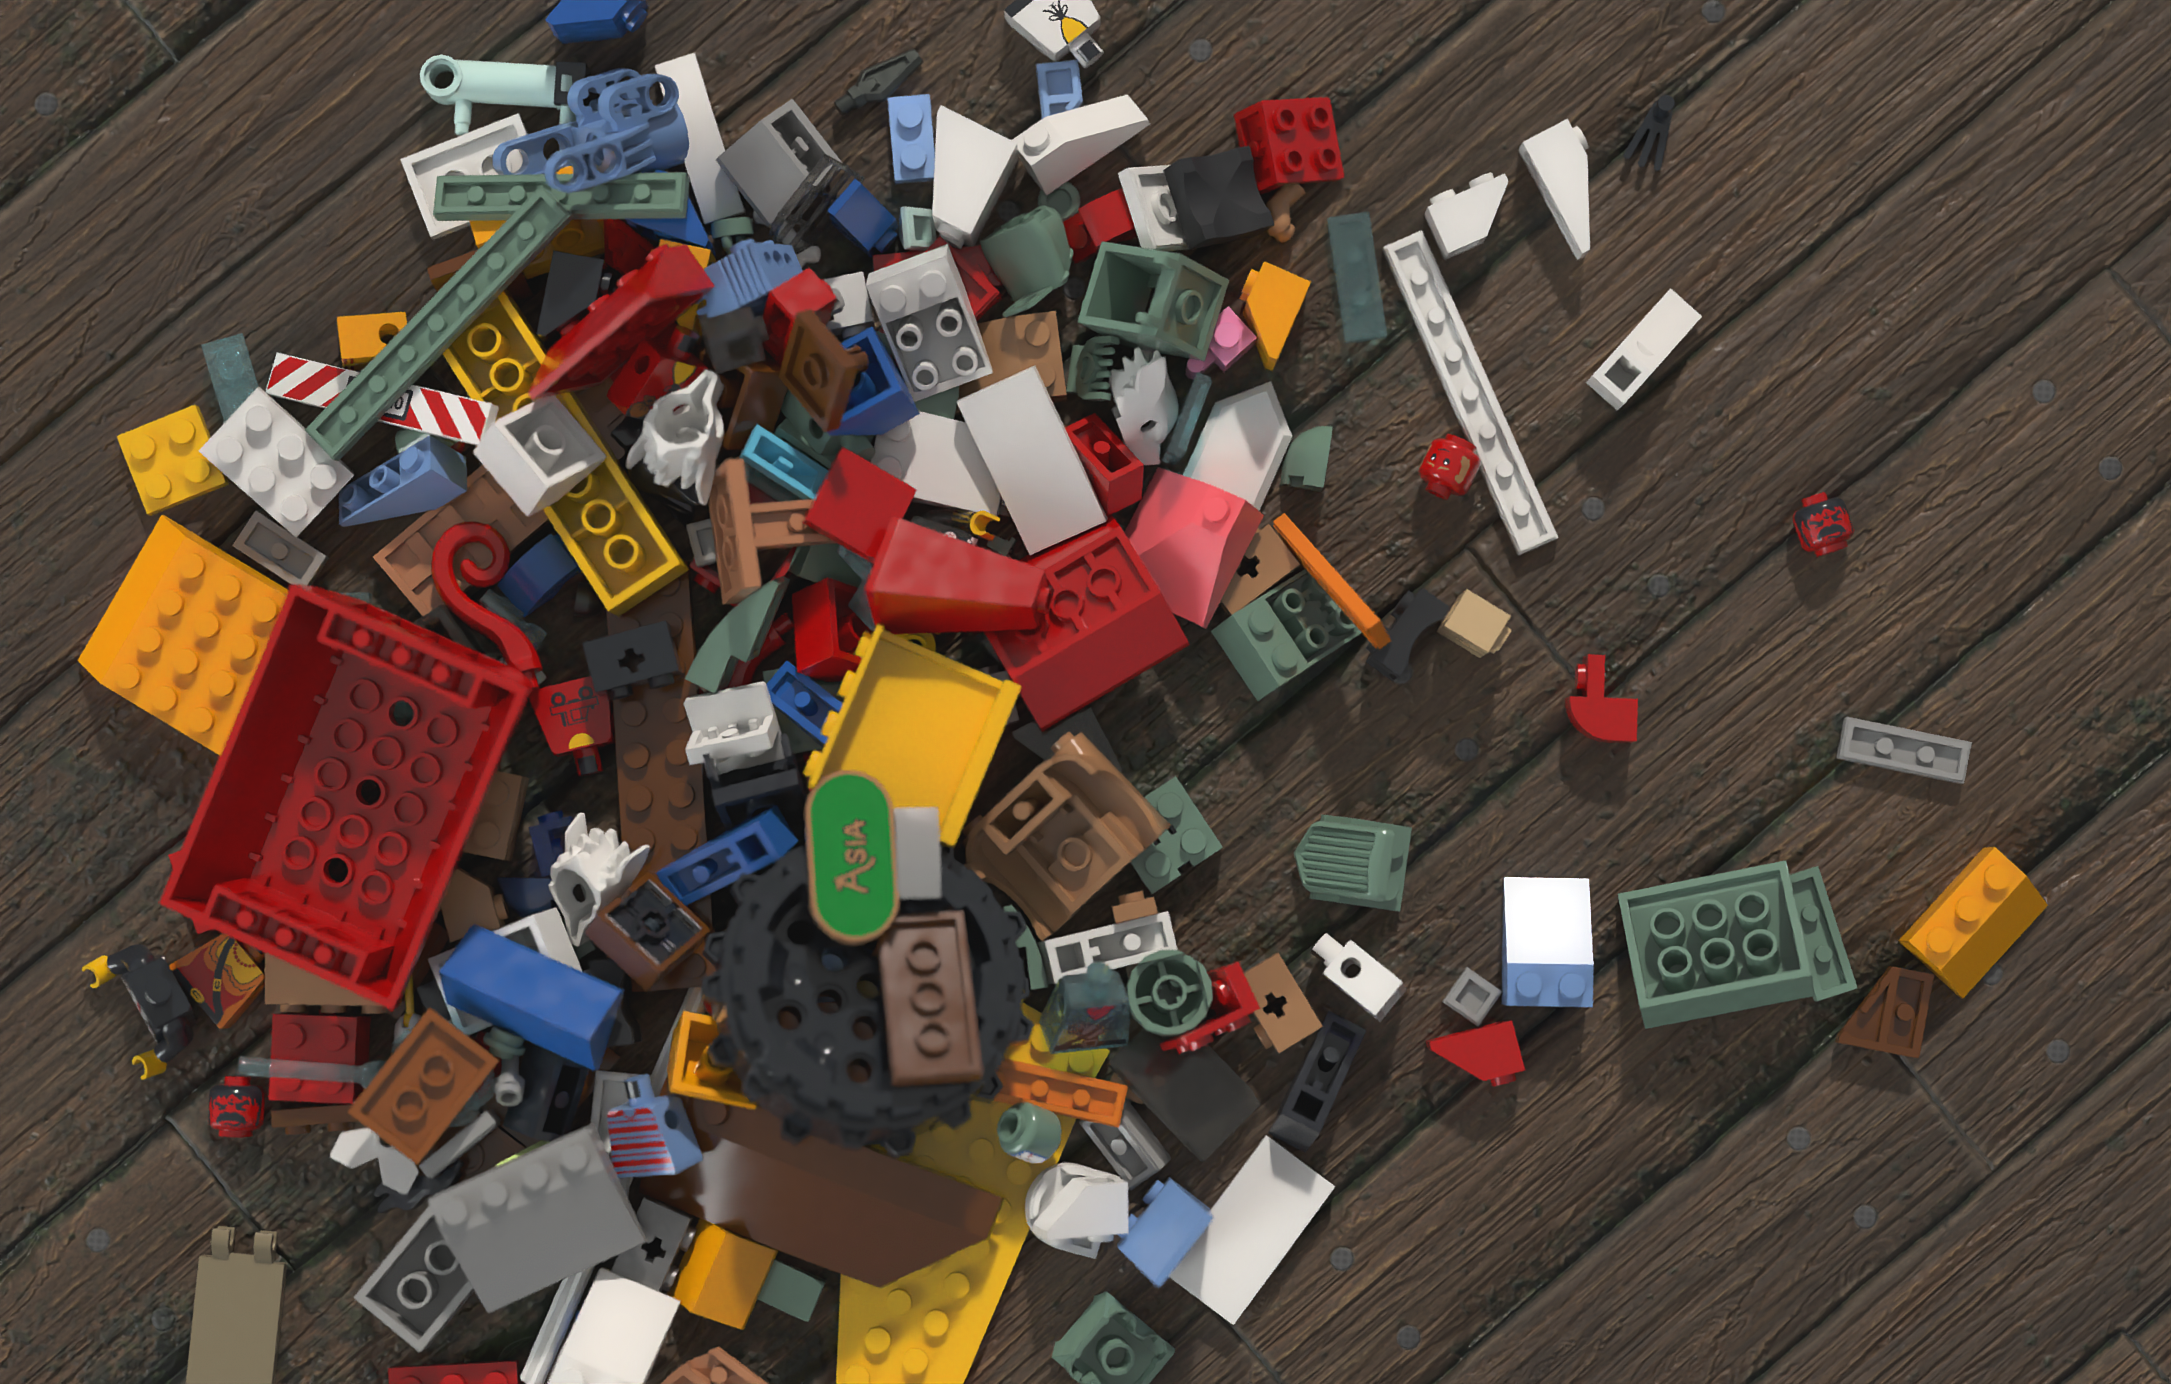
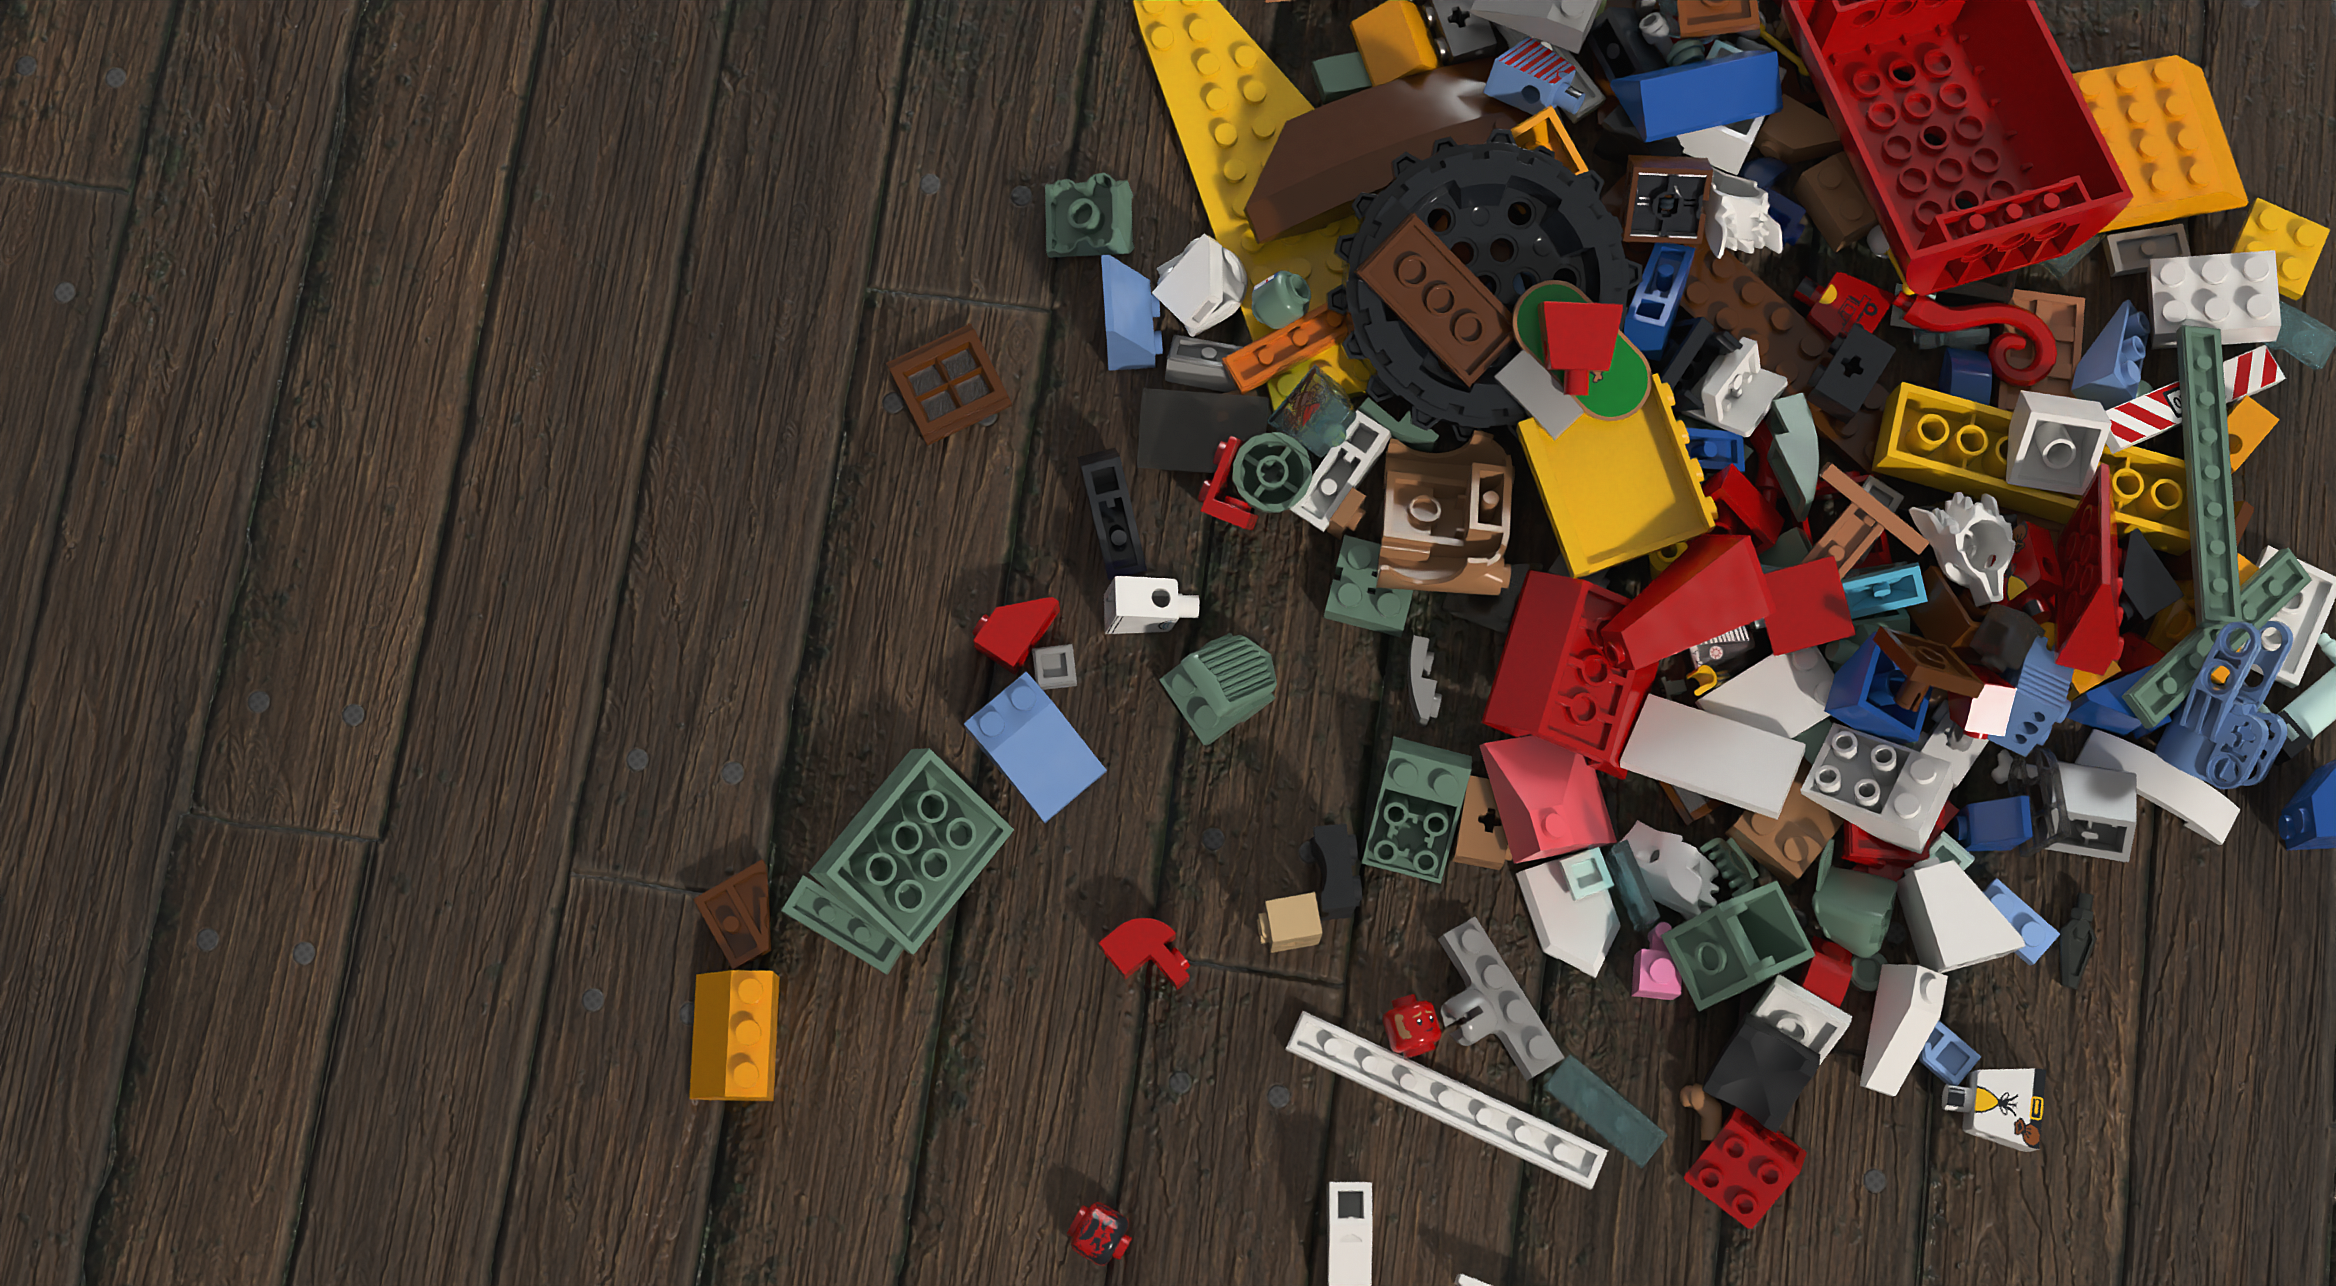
camera: 140 degrees right, 10 degrees down
(731, 228) = (2078, 733): sand green tile -> none
(853, 862) = (1578, 340): none -> red torso
(1108, 463) = (1659, 804): red slope -> none
(1205, 711) = (1422, 694): none -> light grey slope
(1210, 461) = (1586, 873): none -> light aqua plate
(1251, 1229) = (1068, 375): white tile -> none
(1271, 308) = (1644, 1020): light orange slope -> none
(1297, 1017) = (1205, 553): medium nougat brick -> none
(1307, 459) = (1516, 944): sand green brick -> none
(1331, 582) = (1422, 856): orange tile -> none
(1352, 1310) = (949, 384): none -> reddish brown piece
(1368, 430) = (1494, 1002): none -> light grey plate
(1466, 217) = (1567, 1228): white slope -> none
(1904, 750) = (893, 1119): light grey tile -> none

